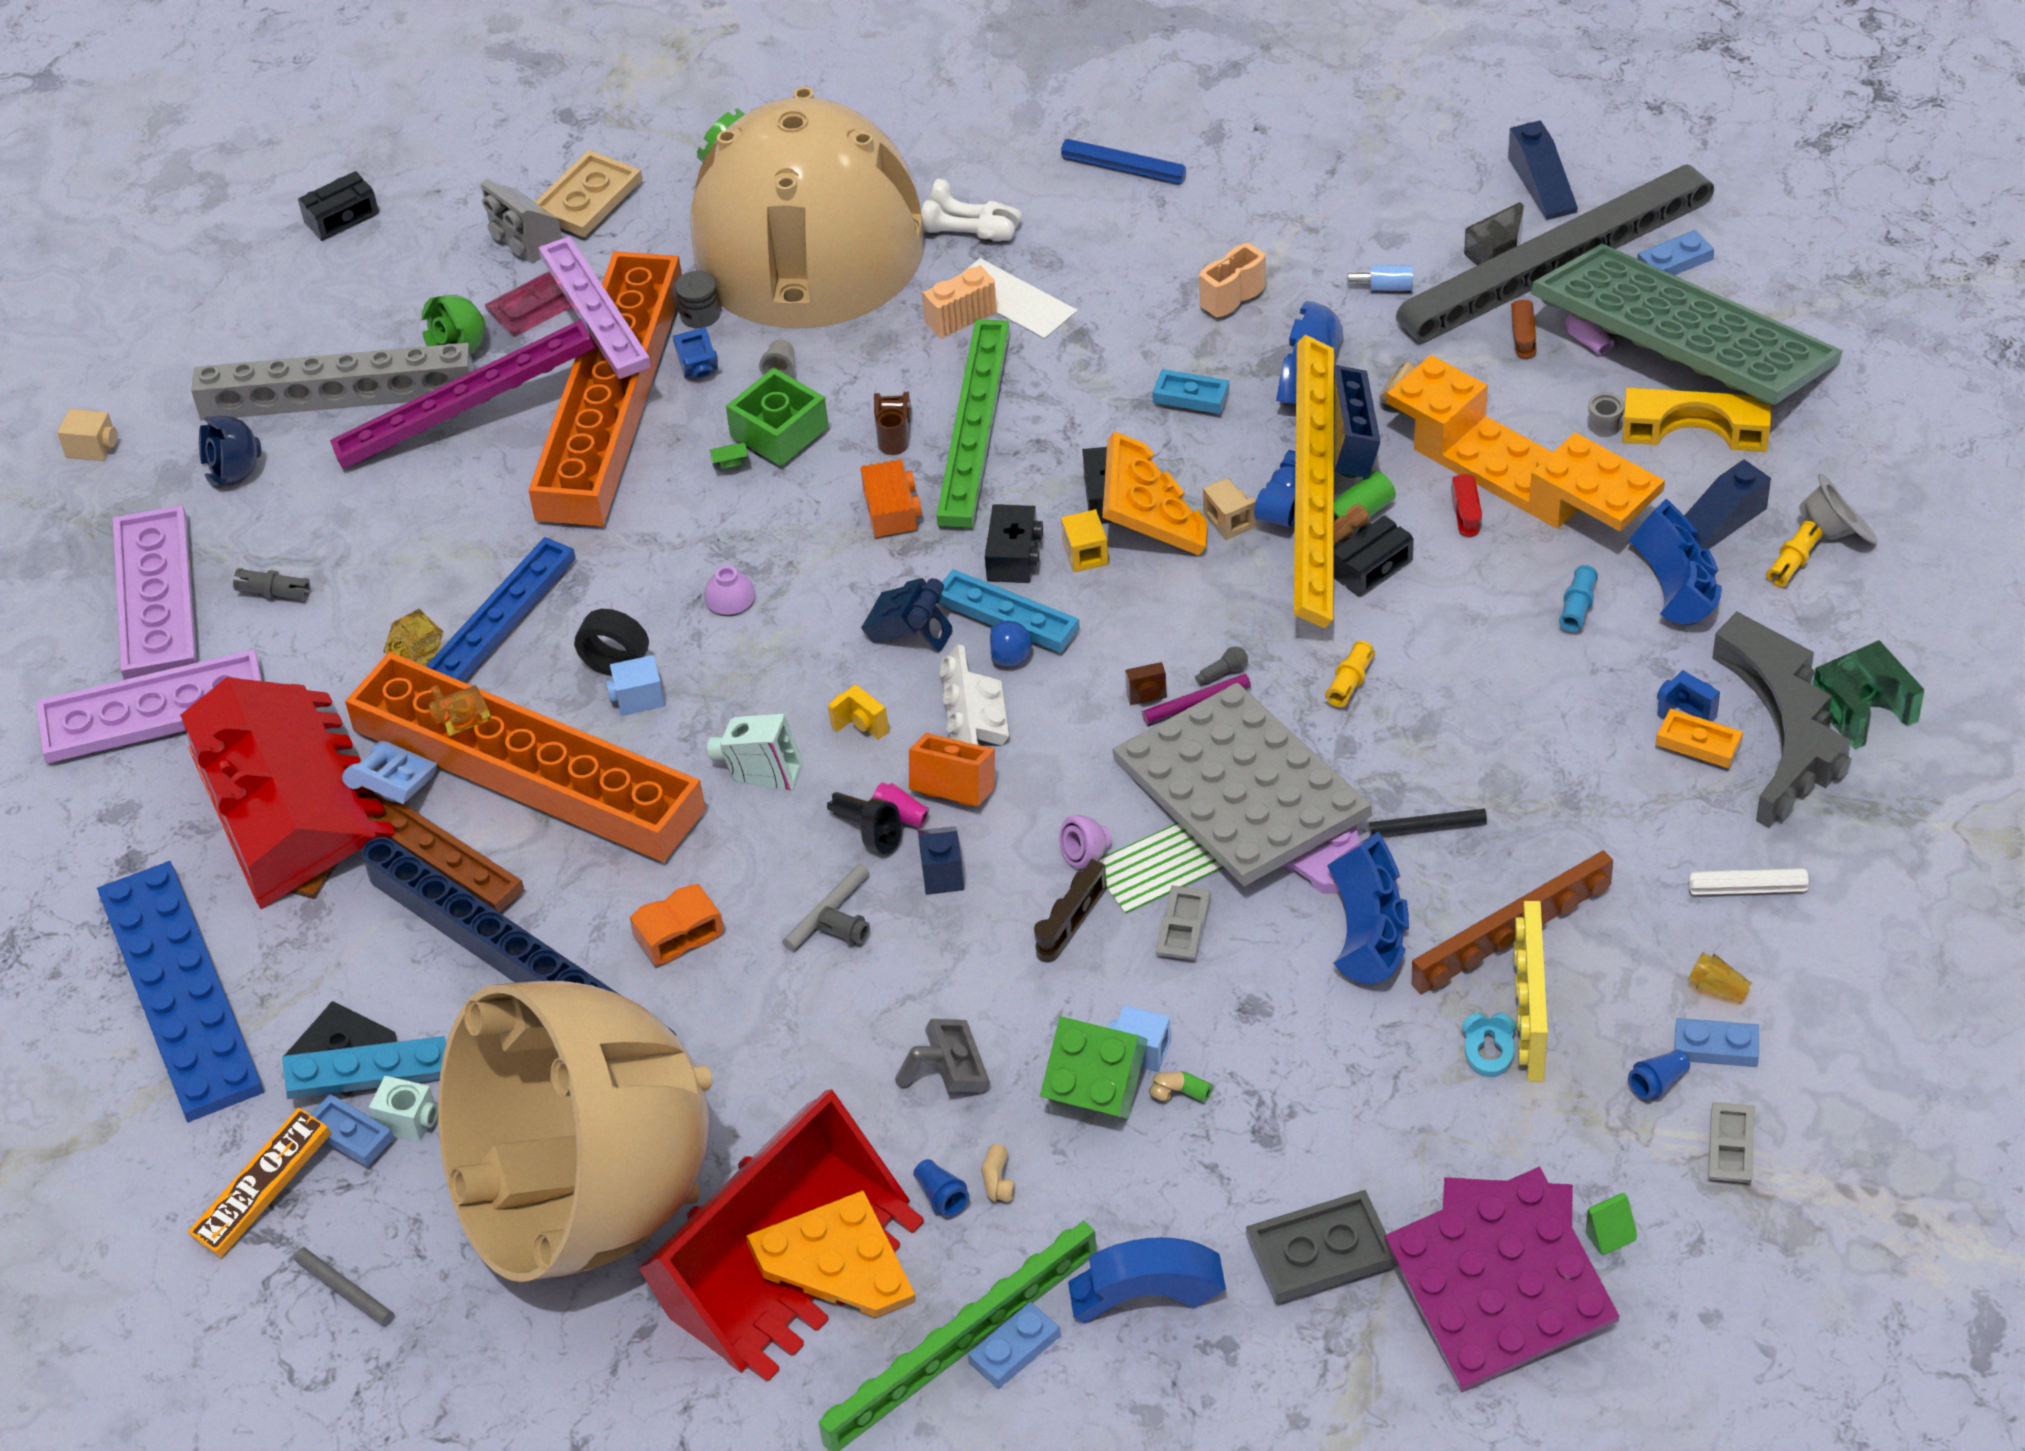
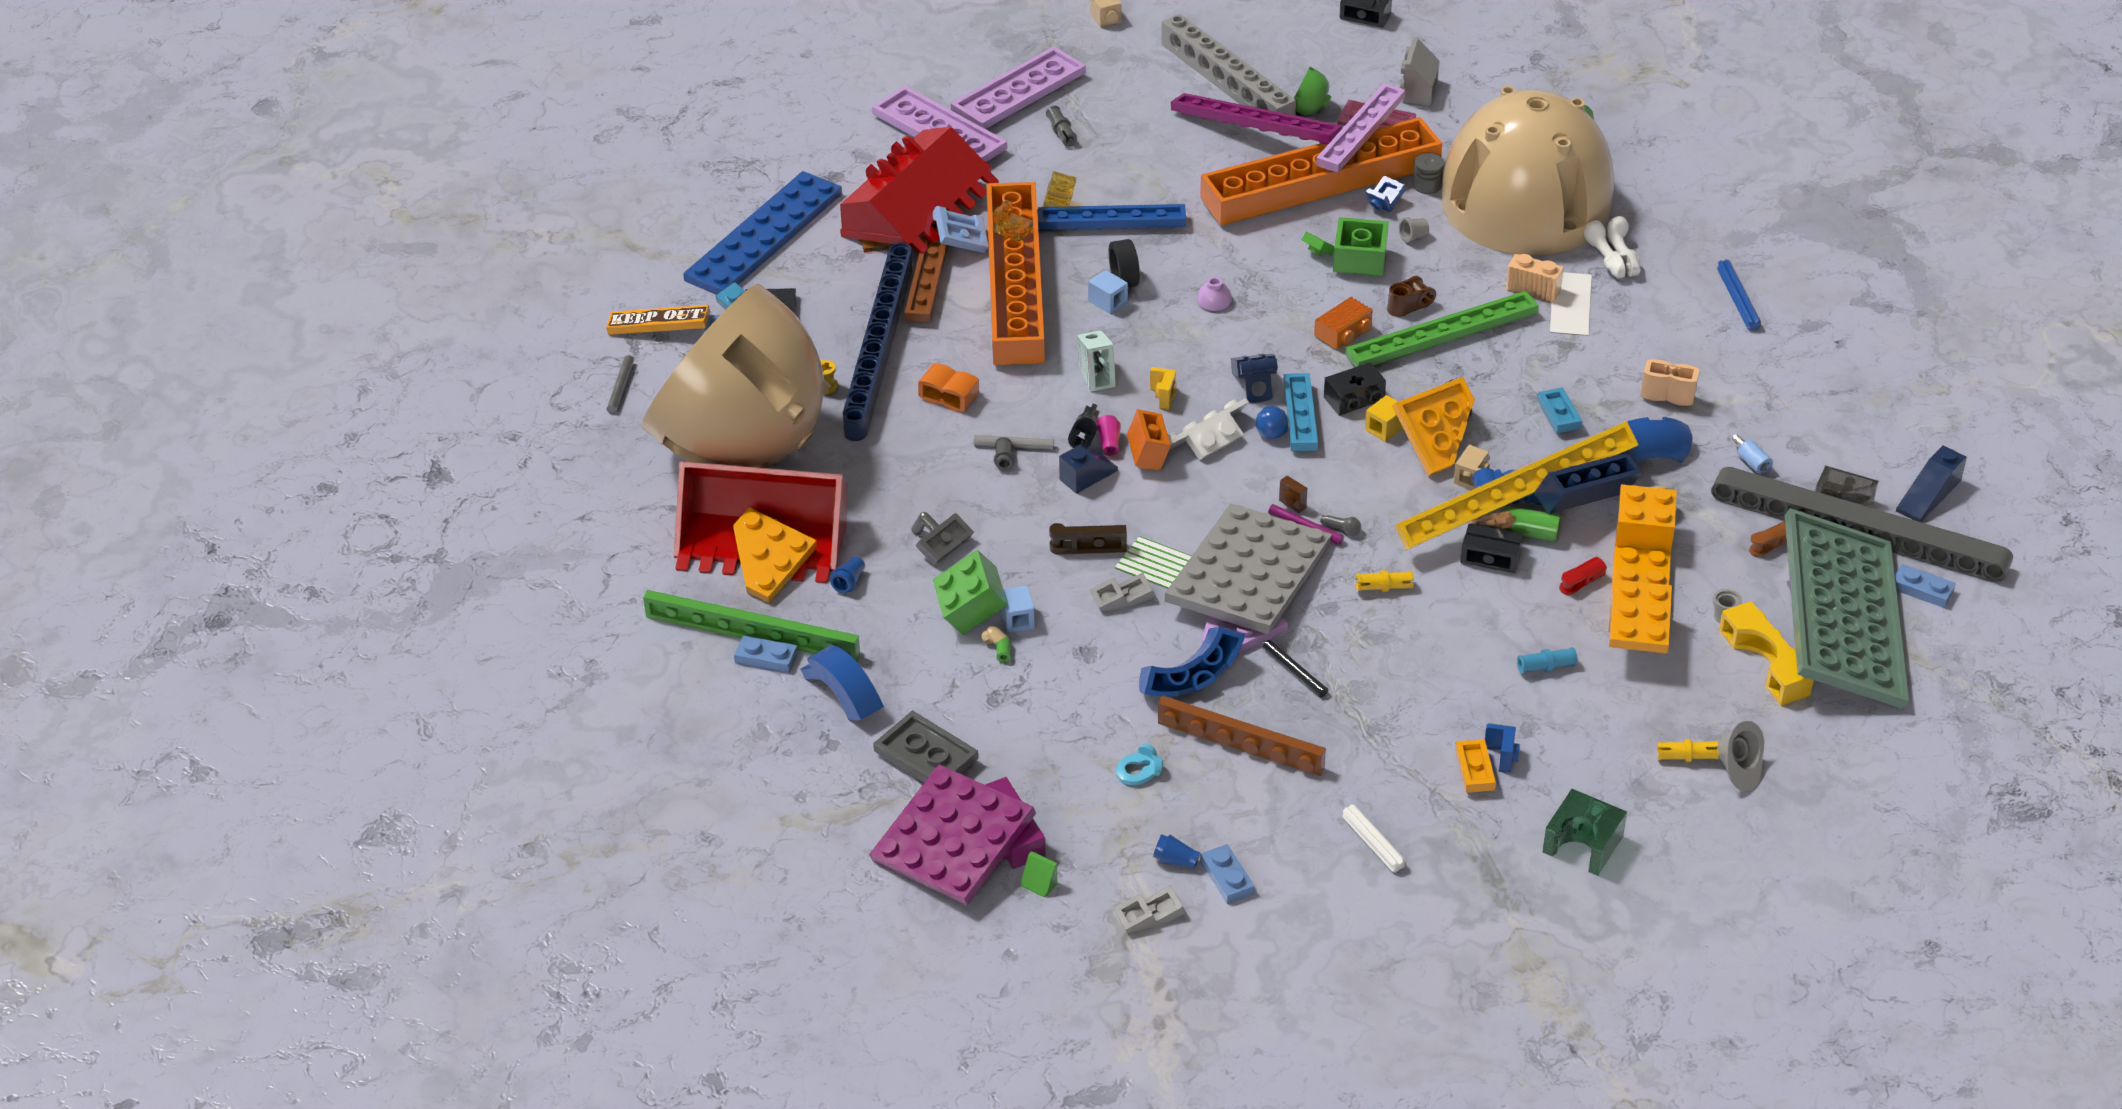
camera: 55 degrees right, 5 degrees down
(228, 449) = (1138, 59): dark blue cylinder -> none
(589, 192) = (1469, 91): tan plate -> none
(991, 1169) = (869, 595): tan arm -> none
(1083, 840) = (1147, 522): lavender brick -> none
(1531, 991) = (1183, 760): light yellow plate -> none
(1680, 564) = (1635, 684): blue brick -> none
(1719, 978) = (1276, 851): clear yellow cone -> none
(1729, 503) = (1692, 697): dark blue slope -> none
(1801, 712) = (1508, 819): dark grey arch -> none

